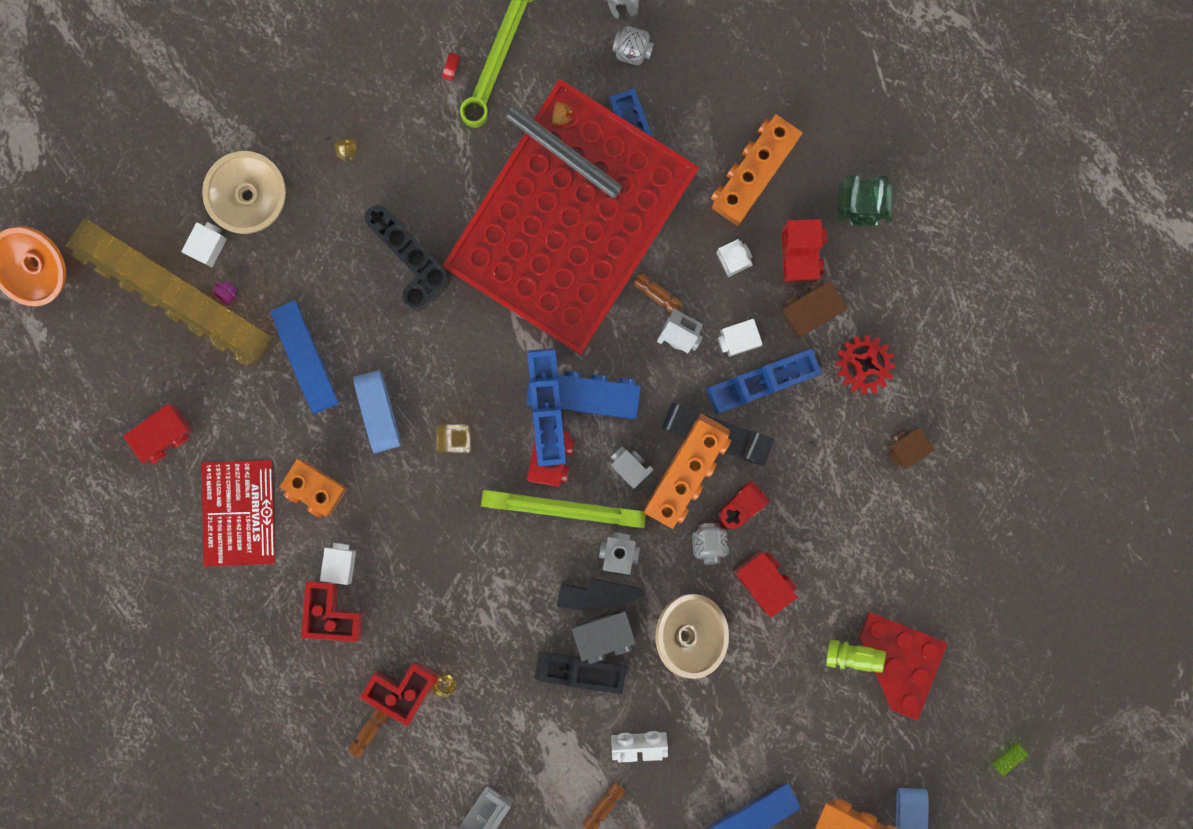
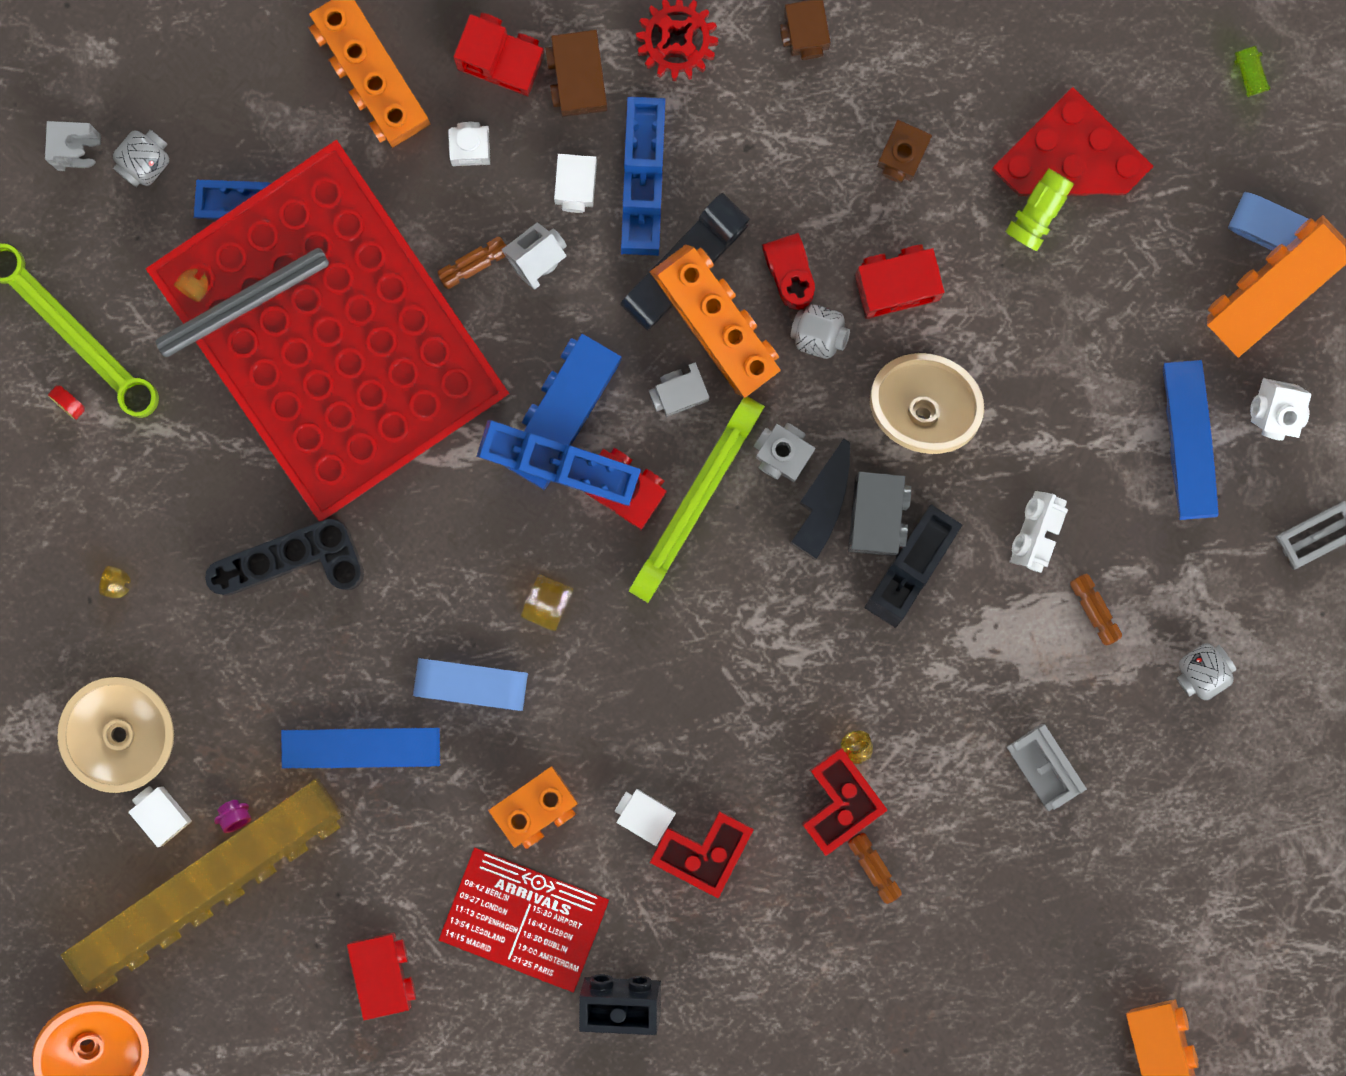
camera: 70 degrees left, 0 degrees up
(204, 602) = (620, 1005): none -> black brick
(854, 548) = (903, 152): none -> reddish brown brick

